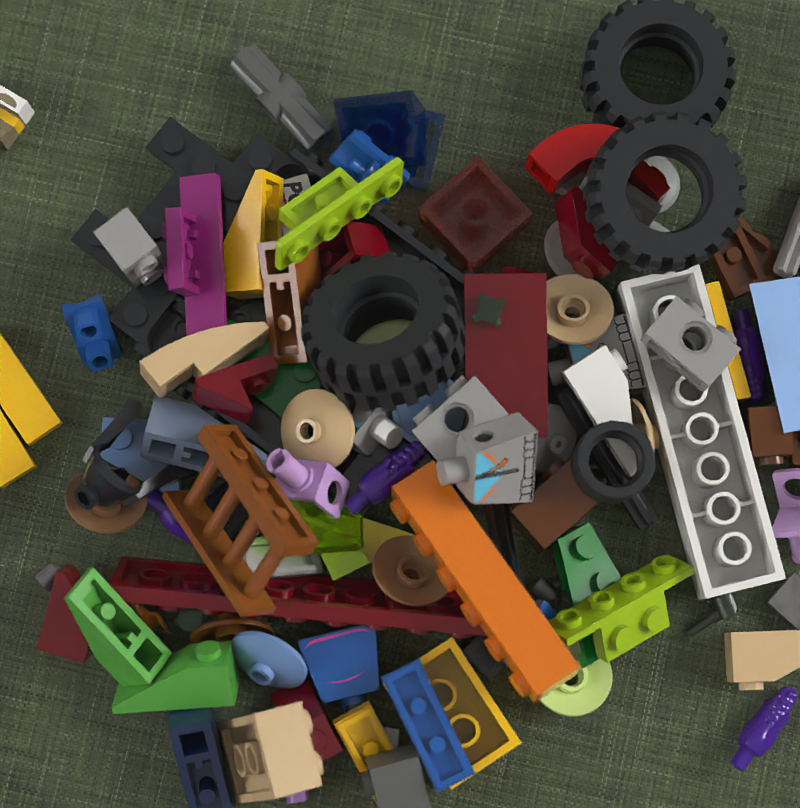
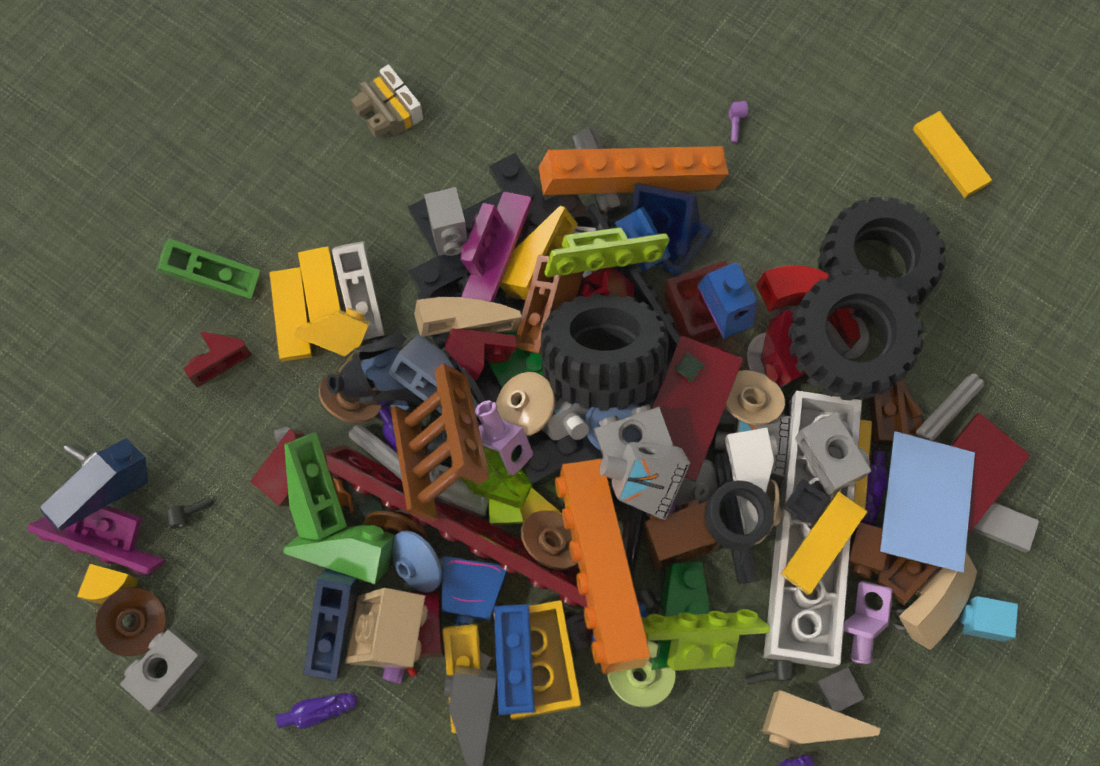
camera: 20 degrees right, 10 degrees down
(54, 429) = (336, 332): none -> yellow slope
(55, 365) = (358, 285): none -> white slope
(93, 332) = (394, 276): blue hips -> none
(164, 547) = (376, 448): none -> light grey axle
(314, 87) = (621, 168): none -> orange brick
(378, 481) = (551, 461): dark purple piece -> none
(502, 207) = (727, 294): none -> blue torso
(682, 411) = (806, 503): none -> black tile
(718, 450) = (823, 543): none -> yellow tile

